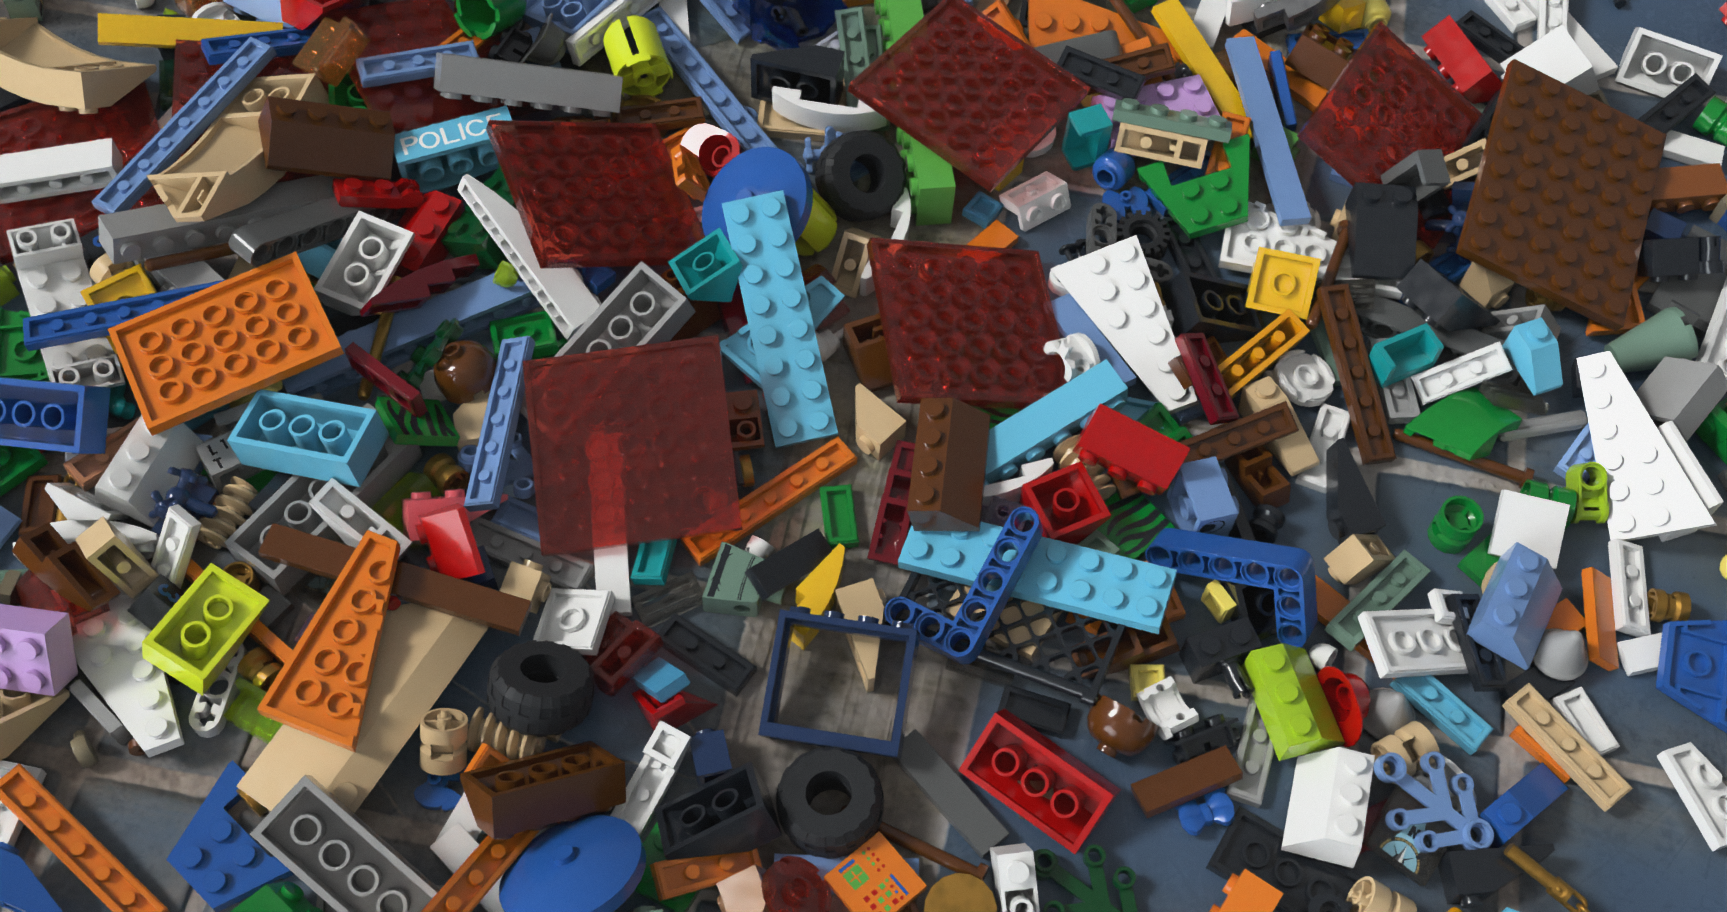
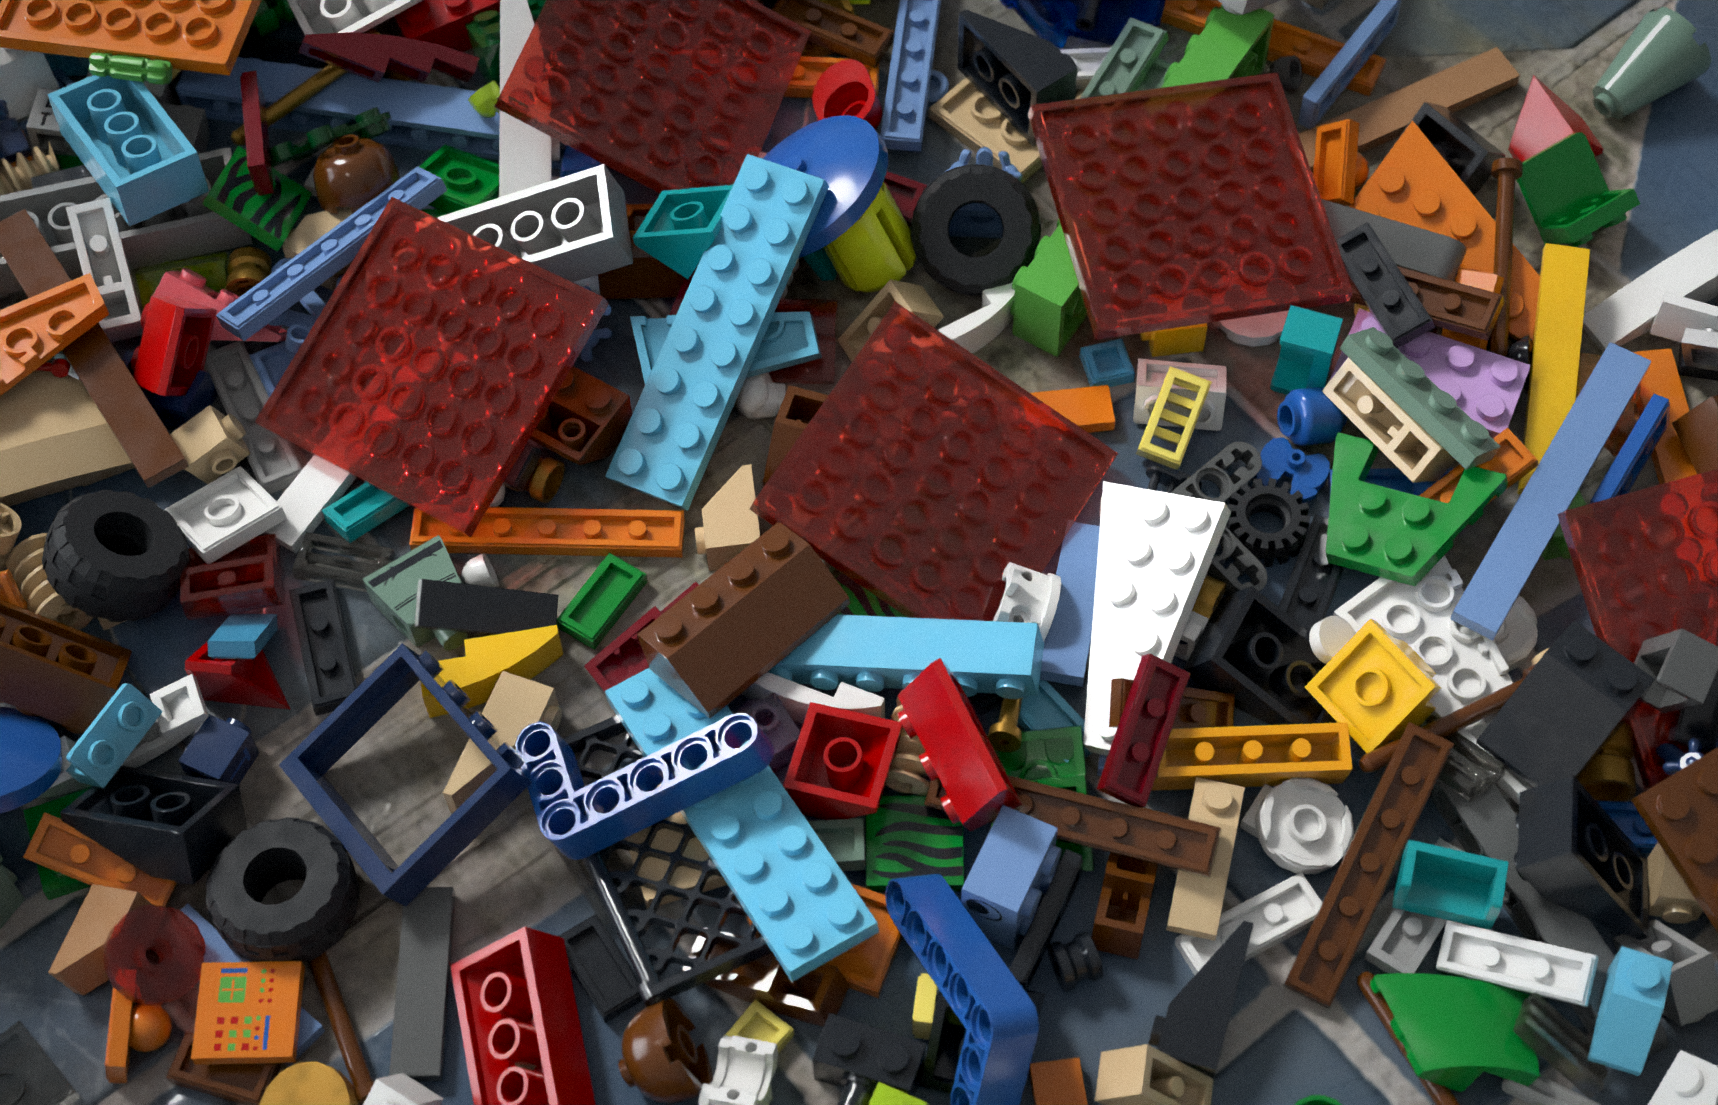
camera: 45 degrees right, 0 degrees up
(273, 388) = (130, 68): none -> bright green axle
(648, 792) = (112, 736): none -> medium azure bracket
(689, 173) = (787, 105): orange wing -> none
(820, 115) = (1001, 127): white slope -> none
(1043, 215) = (1160, 454): none -> light yellow slope
(1234, 275) = (1329, 637): none -> white tile

